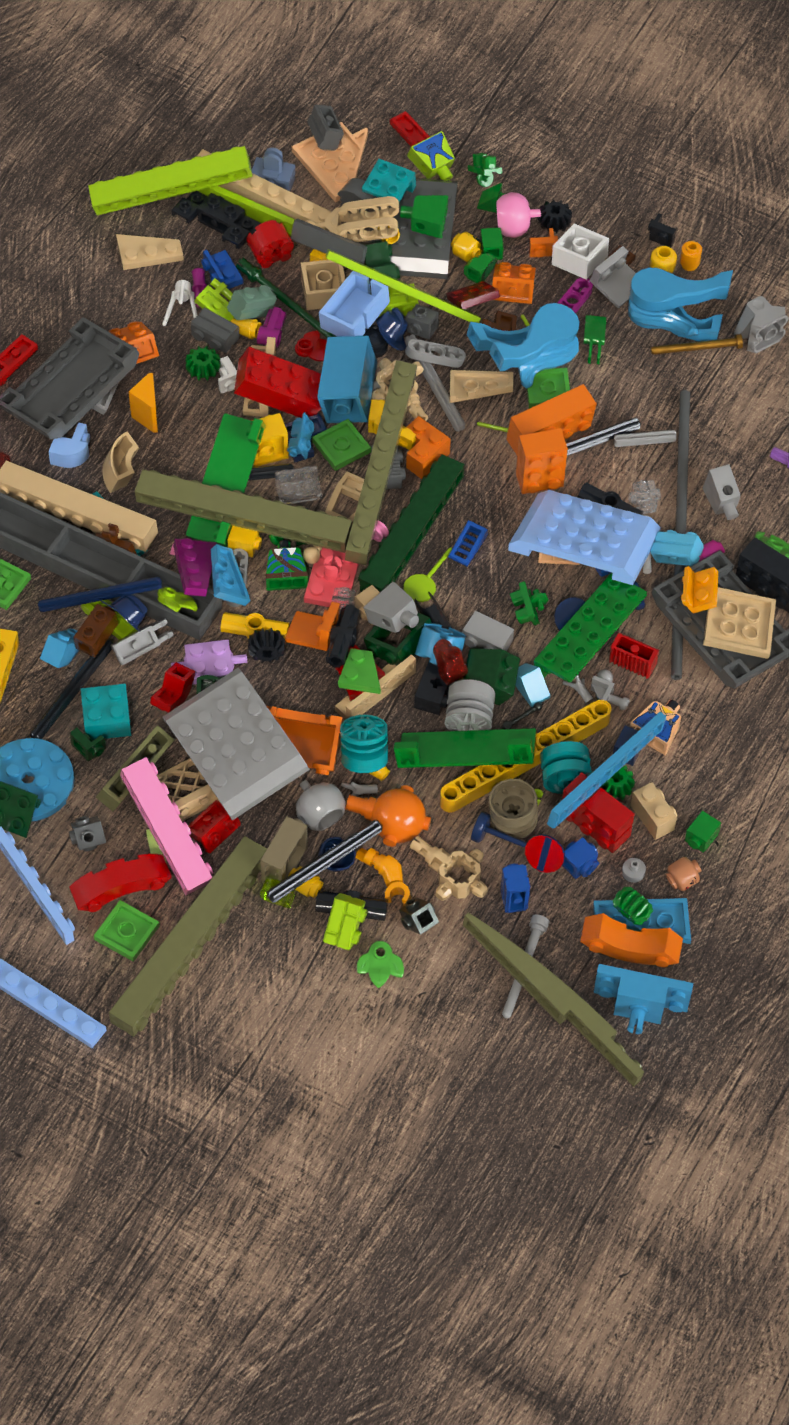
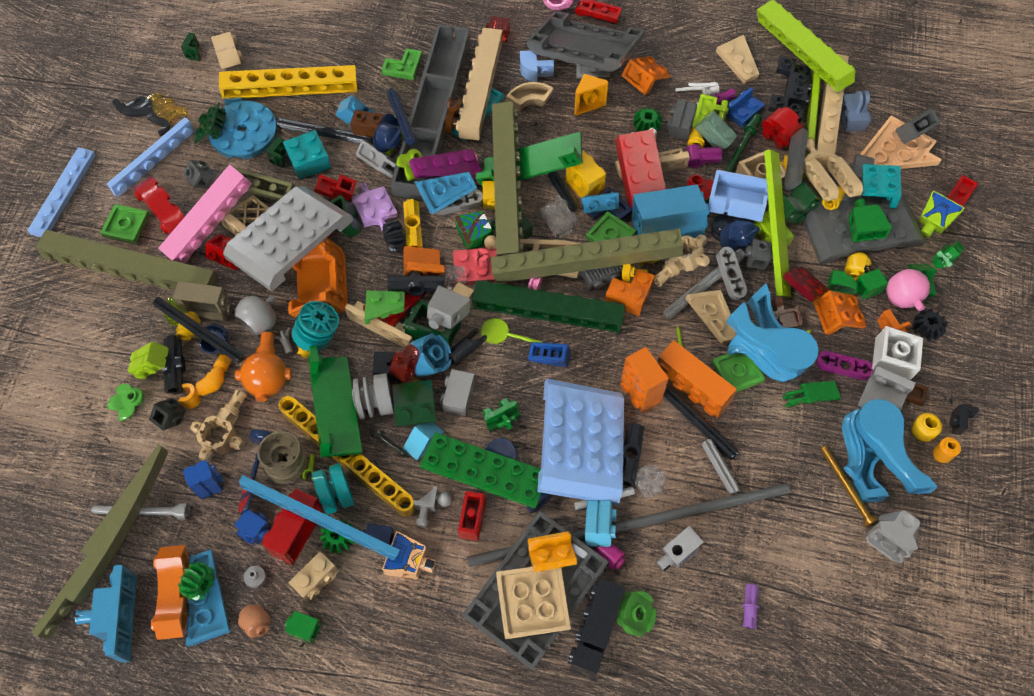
camera: 75 degrees right, 5 degrees up
(580, 687) = (429, 484): light grey bar -> none

